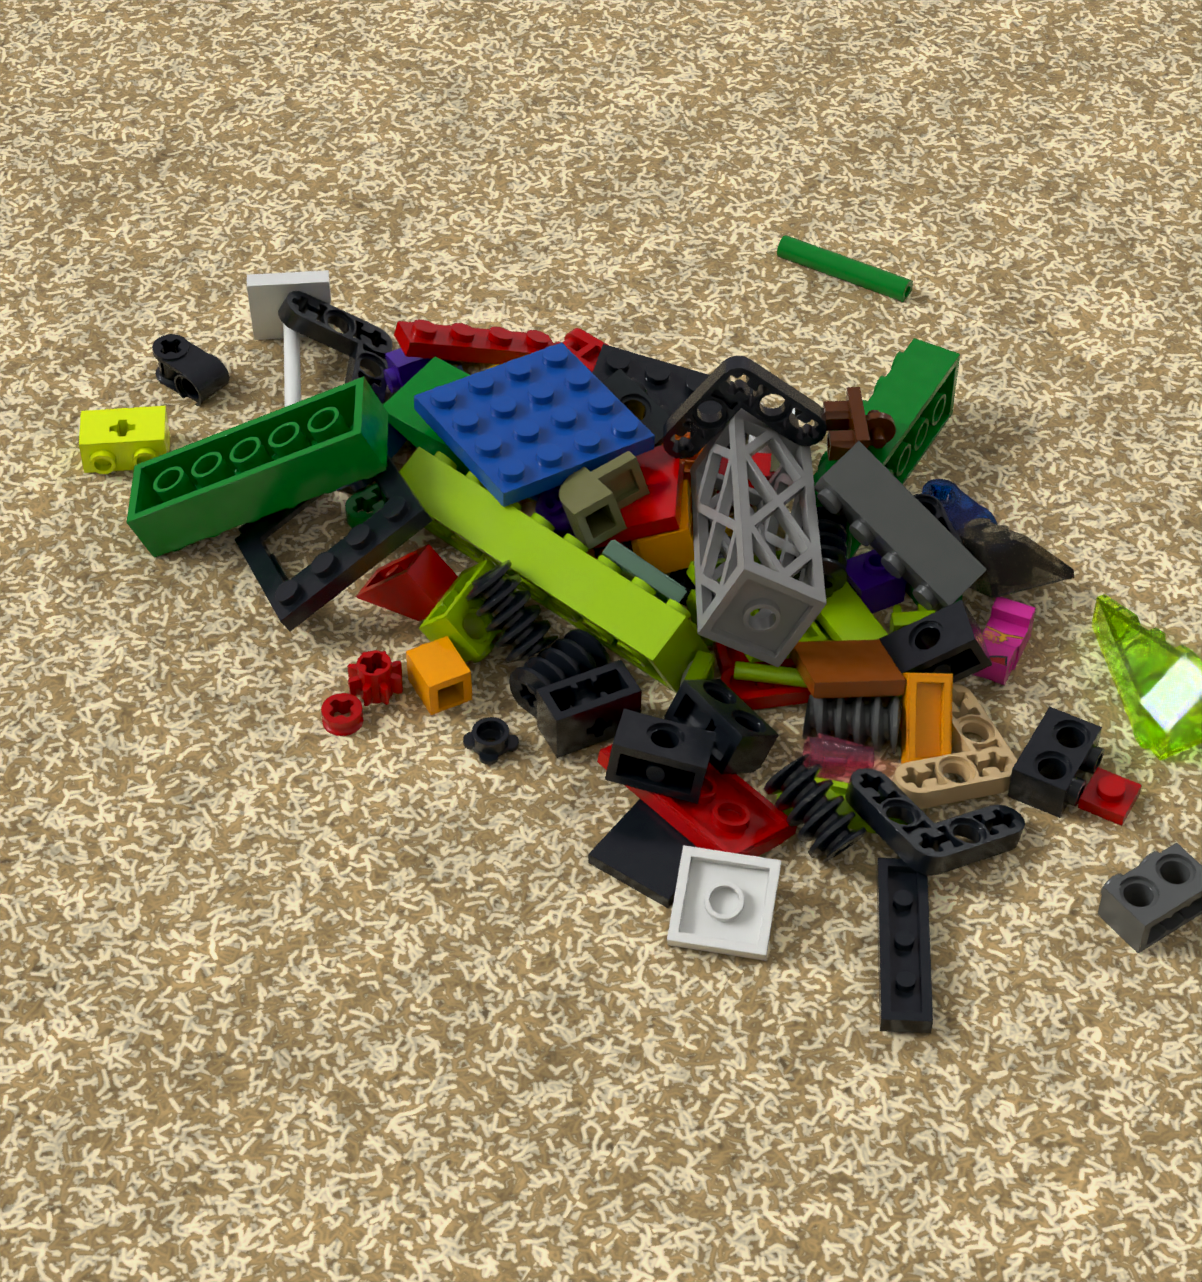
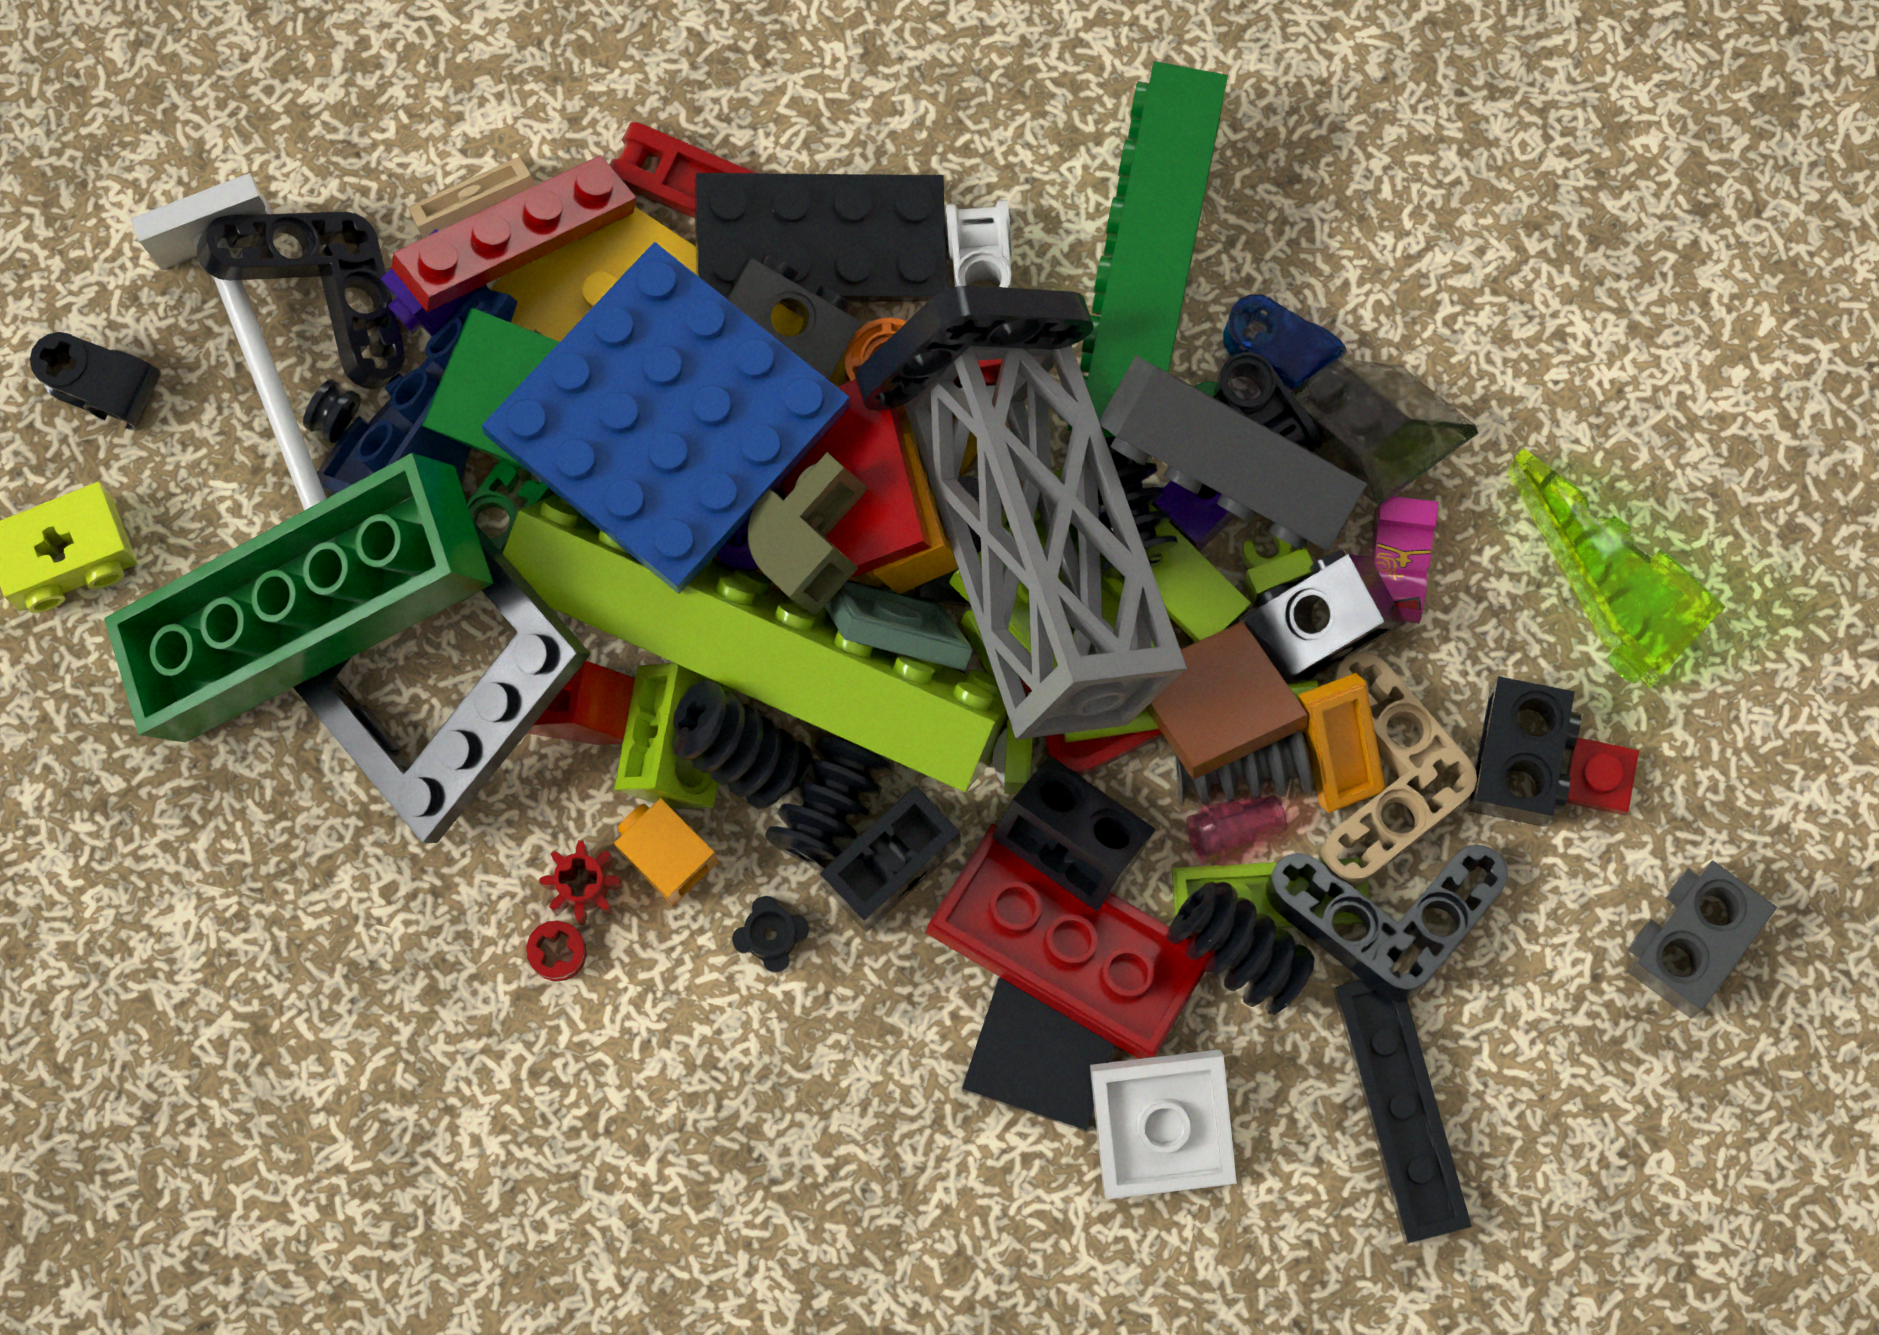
camera: 15 degrees left, 30 degrees up
(660, 756) = (989, 952): black brick -> none
(849, 424) = (1134, 326): reddish brown hips -> none

